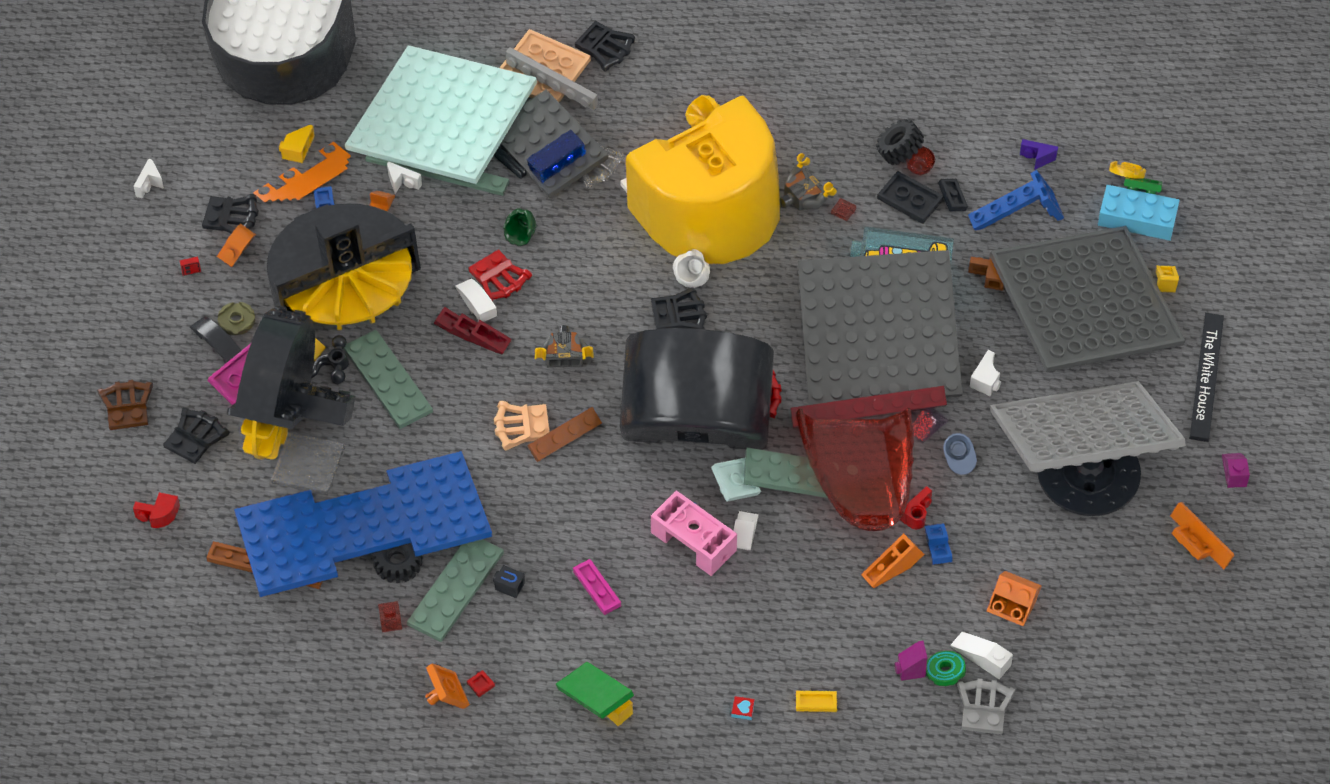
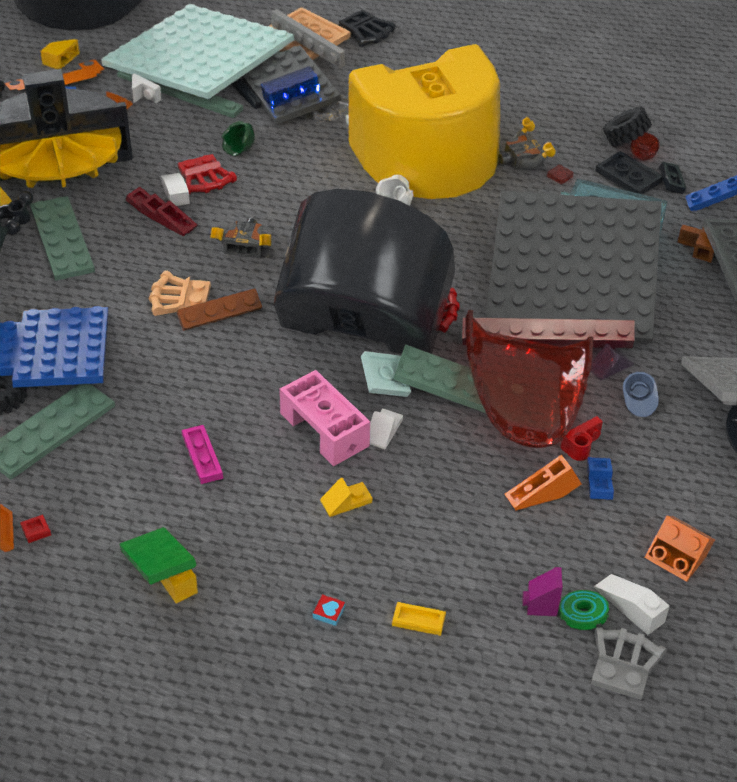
camera: 10 degrees right, 10 degrees down
(509, 581) = (107, 431): black brick -> none
(729, 605) = (343, 498): none -> yellow slope
(985, 376) = (681, 329): white arch -> none

